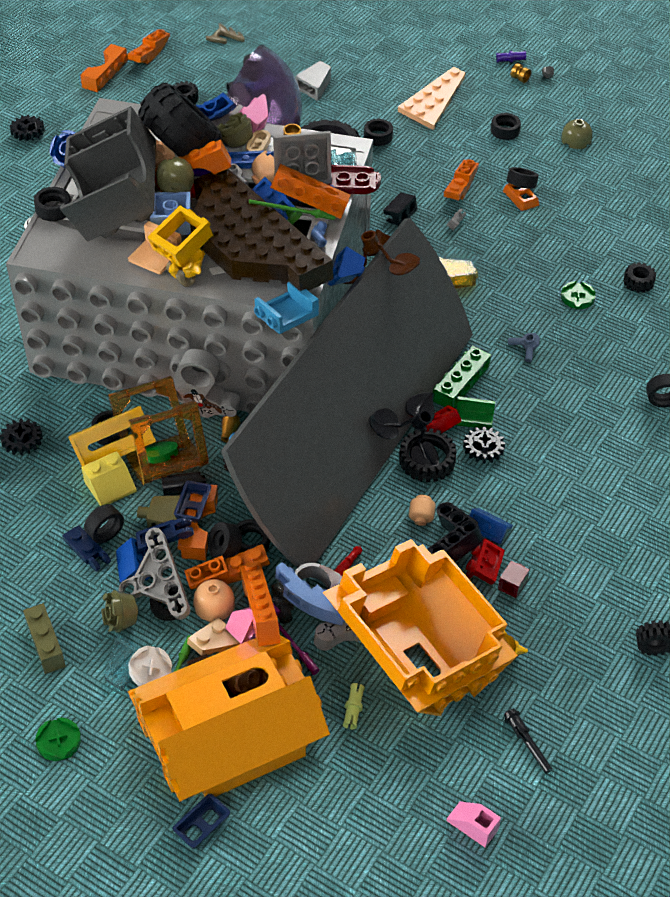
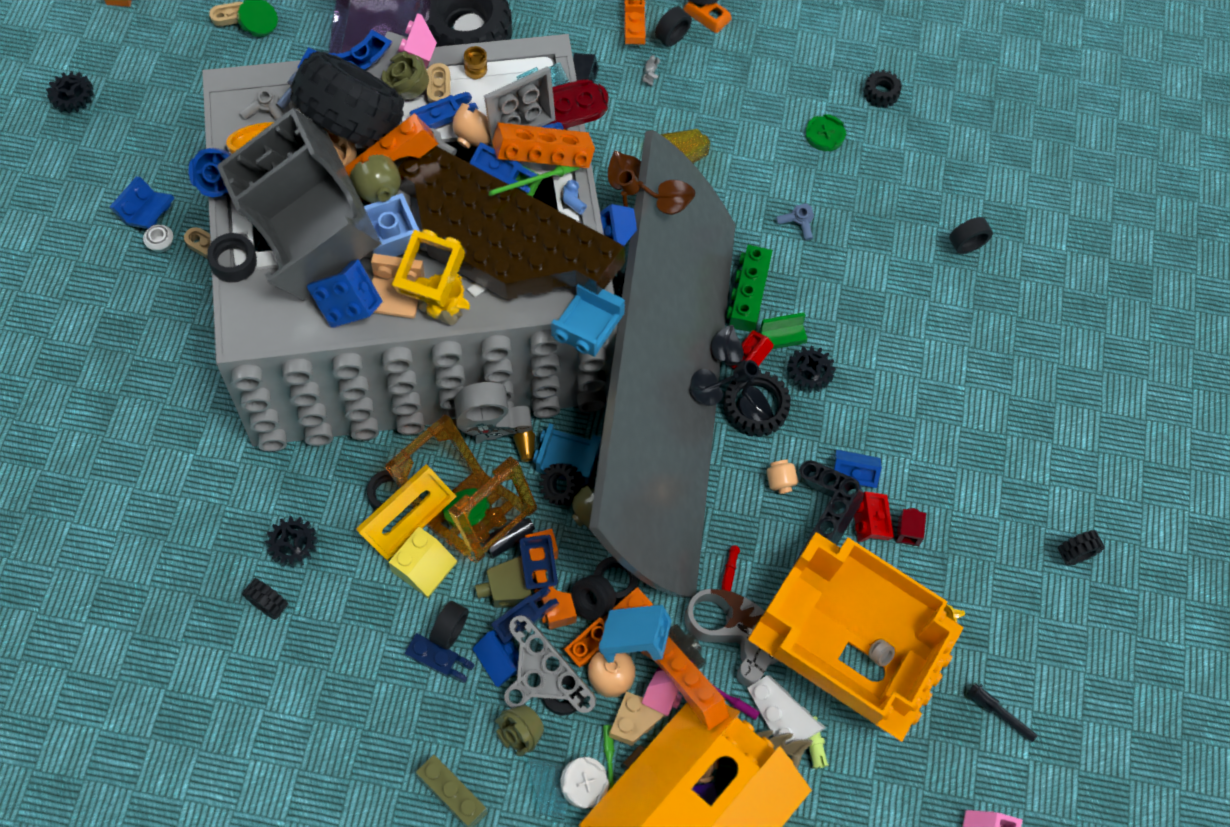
camera: 25 degrees left, 15 degrees up
(25, 201) = (140, 204): none -> blue bracket
(115, 240) = (346, 295): none -> blue bracket
(247, 563) = (635, 631): none -> dark azure panel
(306, 599) = (707, 636): medium blue slope -> none
(332, 700) = (794, 748): none -> dark tan piece
(336, 676) = (782, 711): none -> white wing
(442, 657) = (881, 652): none -> light grey tile
(481, 187) = (673, 26): none -> black tyre

